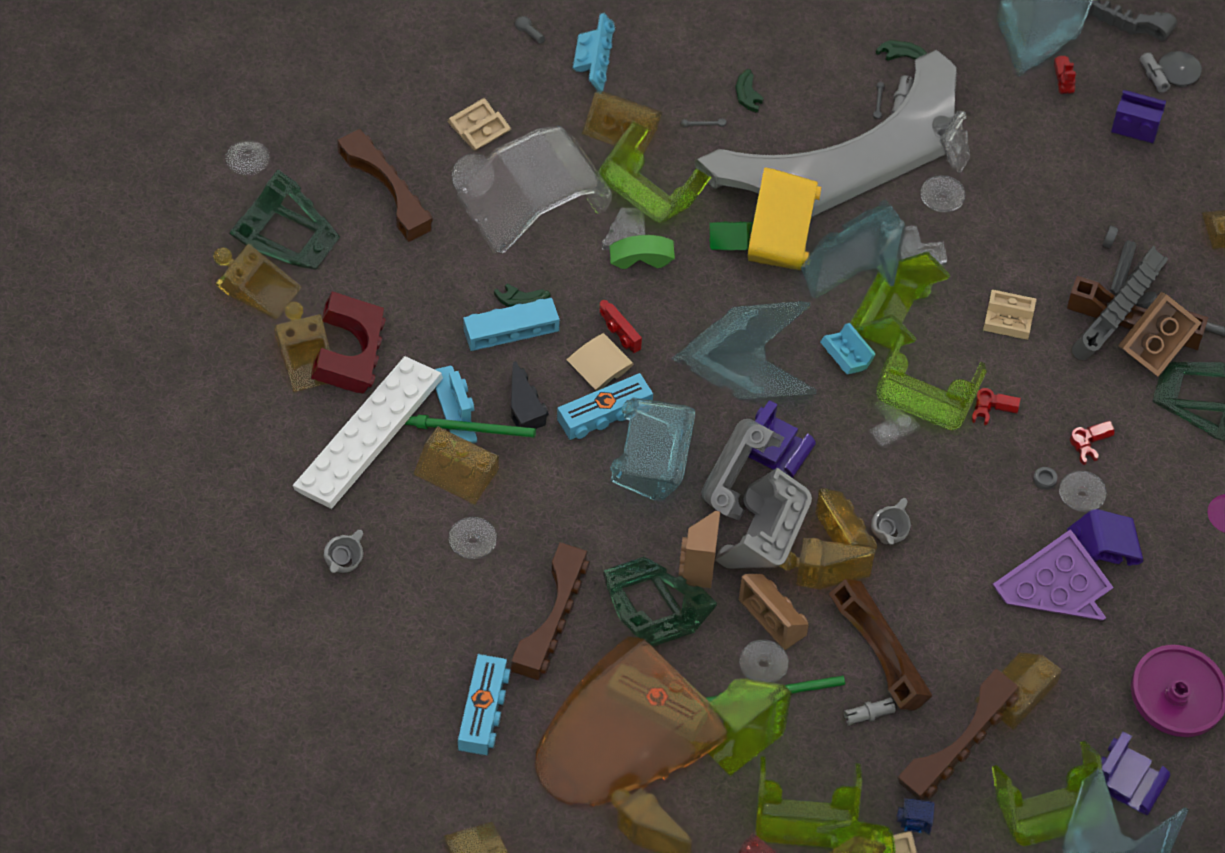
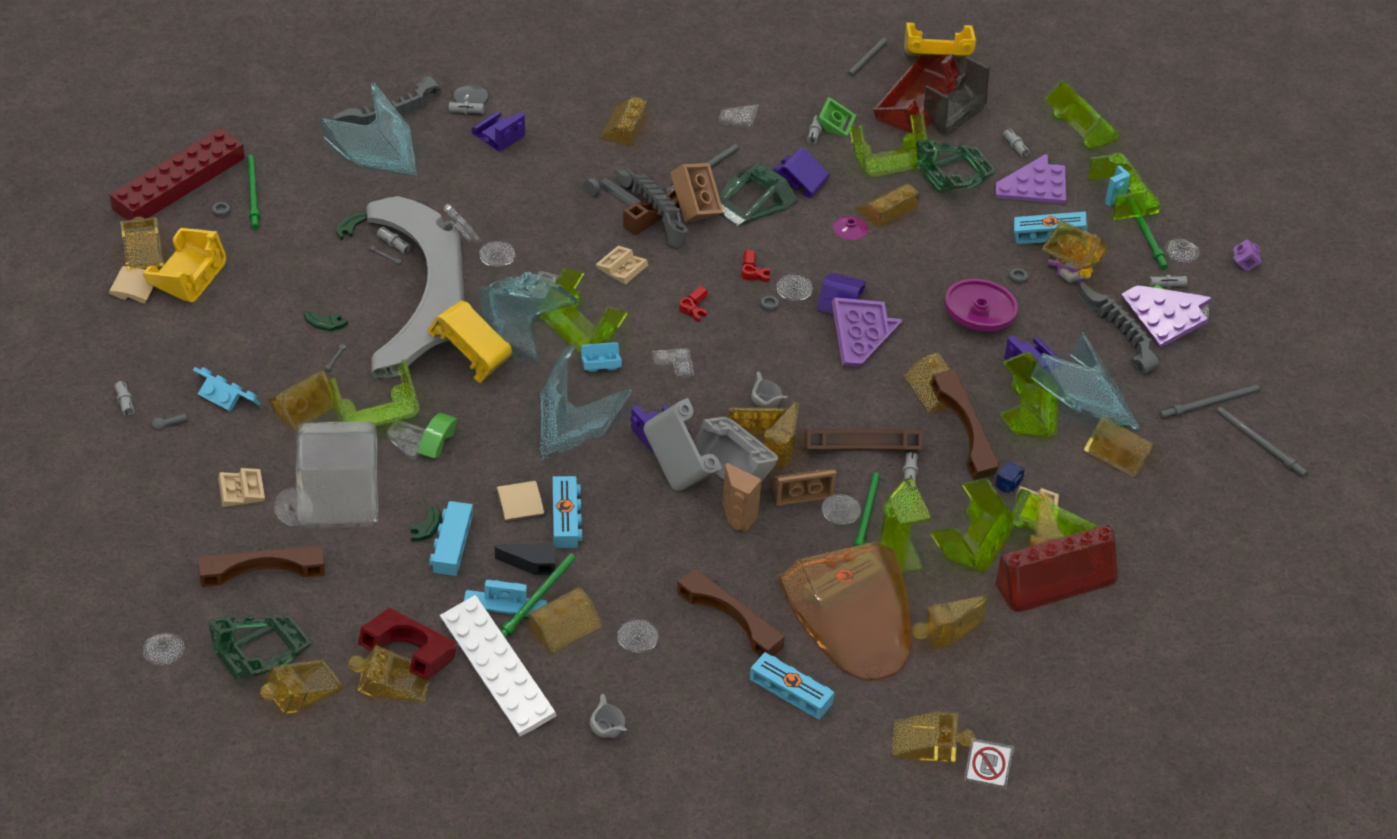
camera: 65 degrees left, 10 degrees down
(618, 324) = (496, 474): red hinge -> none
(654, 447) = (631, 485): clear light blue windscreen -> none
(695, 607) = (781, 541): clear green windscreen -> none
(730, 235) = (458, 377): green panel -> none
(922, 399) = (681, 319): clear neon green windscreen -> none
(1065, 75) = (443, 153): red bar -> none

